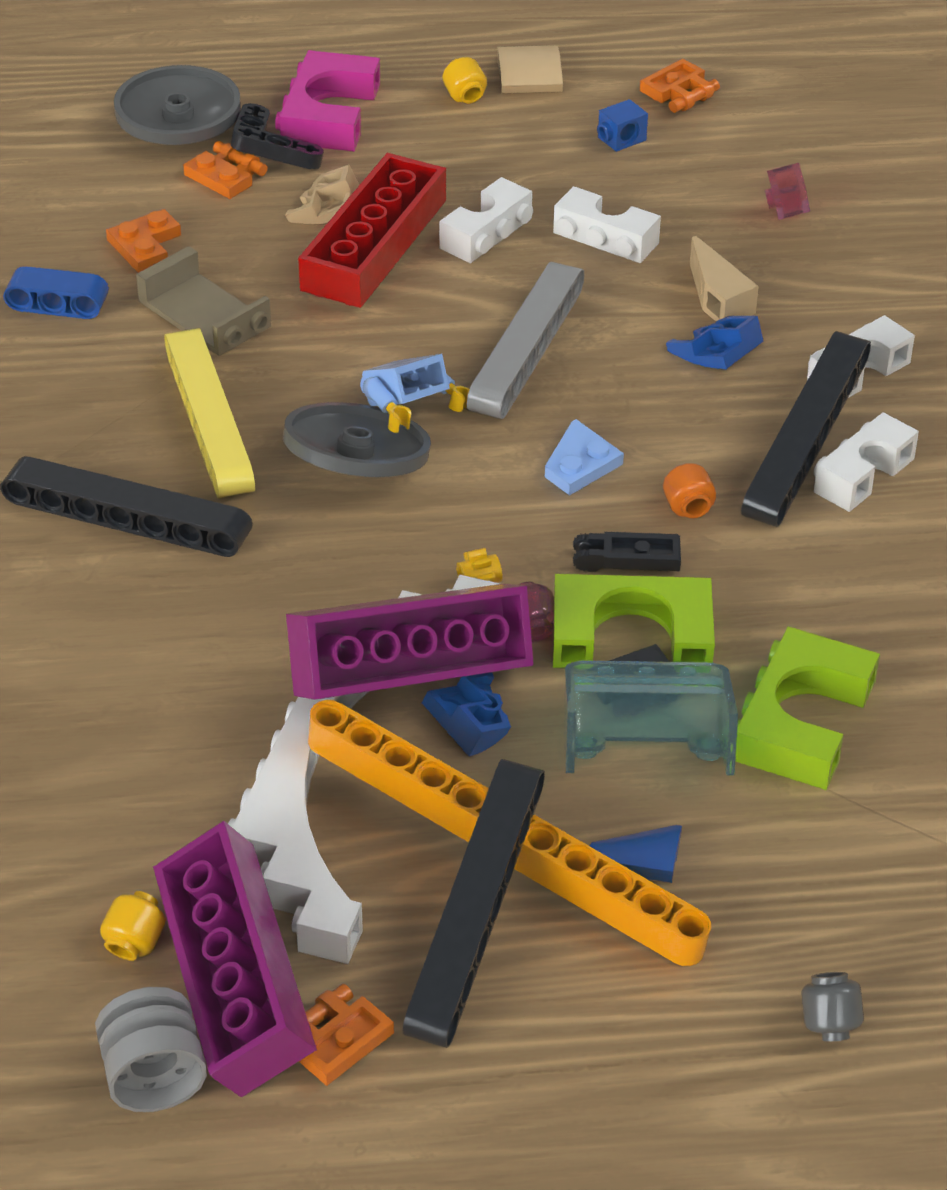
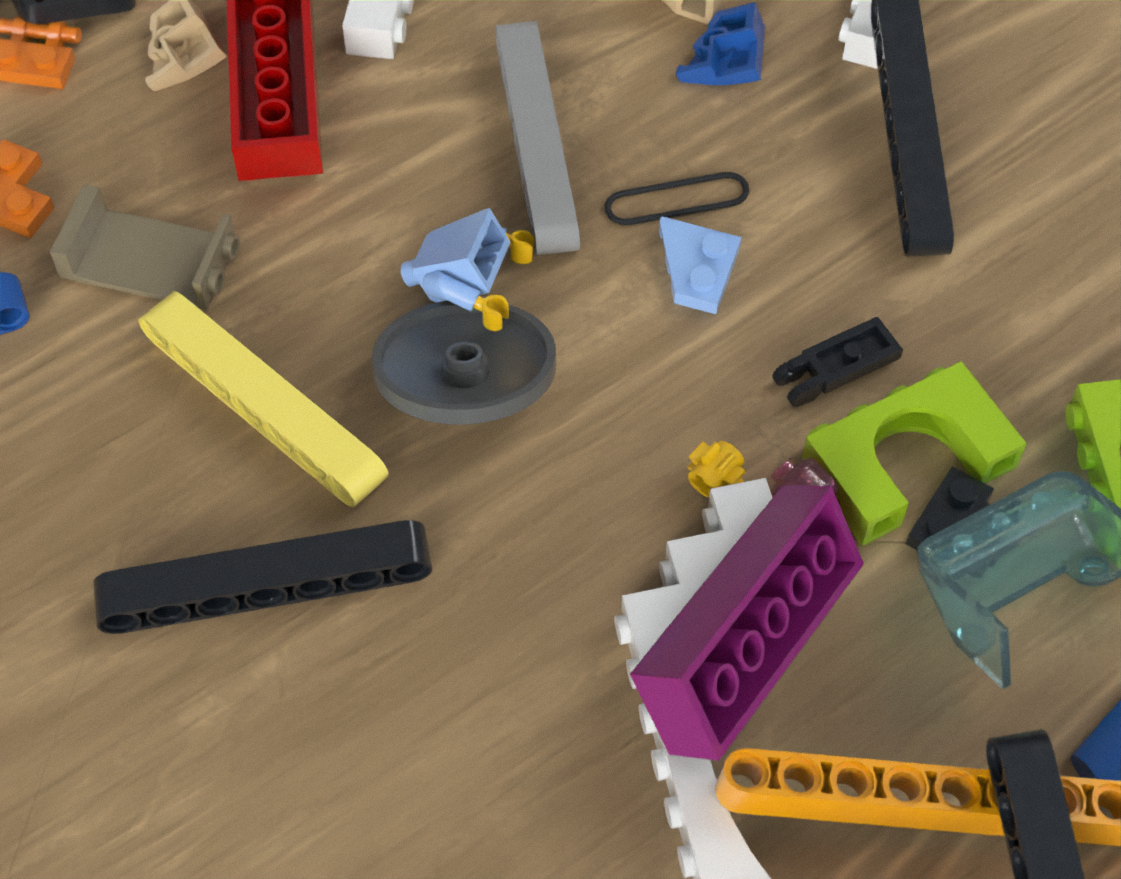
camera: 30 degrees left, 15 degrees up
(470, 712) = (841, 662): blue slope -> none
(606, 408) = (680, 212): none -> black piece
(689, 490) = (842, 253): orange head -> none
(849, 471) = (978, 160): white arch -> none

